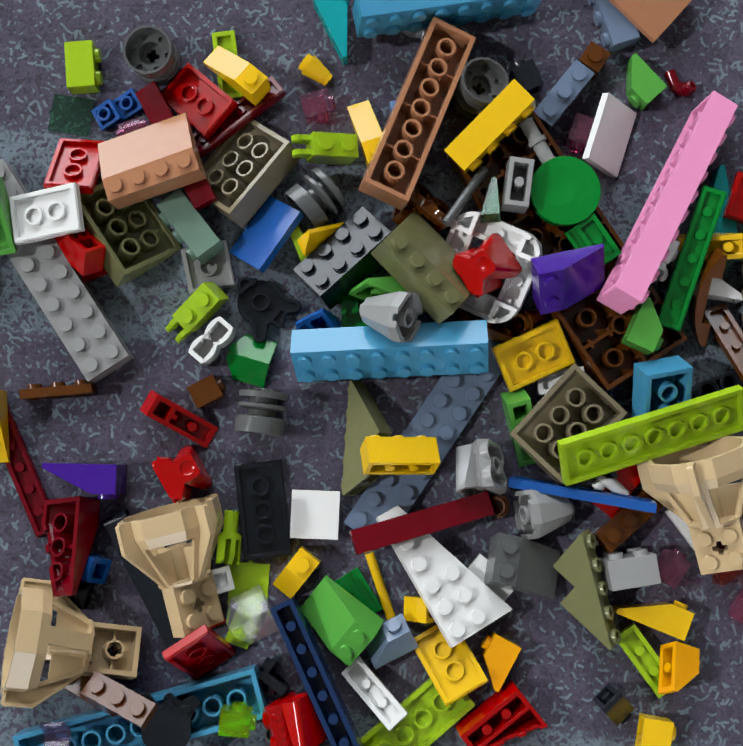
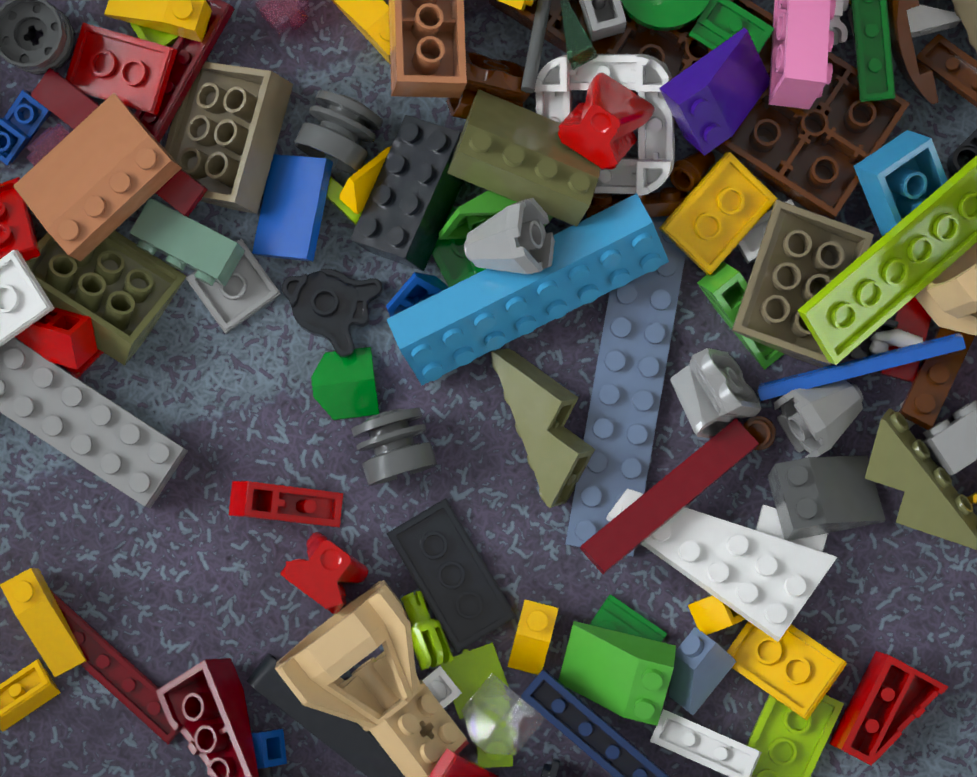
camera: 20 degrees left, 0 degrees up
(57, 390) = (108, 537): reddish brown plate -> none
(99, 479) = (215, 627): dark purple slope -> none
(197, 309) = (246, 348): lime hinge -> none
(207, 391) = (308, 450): reddish brown brick -> none
(216, 336) = (282, 390): white brick -> none
(315, 514) = (523, 550): white tile -> none
(327, 148) = (323, 57): lime hinge -> none
(380, 585) = (650, 605): yellow bar -> none
(399, 455) = (601, 420): yellow brick -> none
(499, 657) = (847, 629): light orange slope -> none
(644, 329) = (847, 115): bright green slope -> none

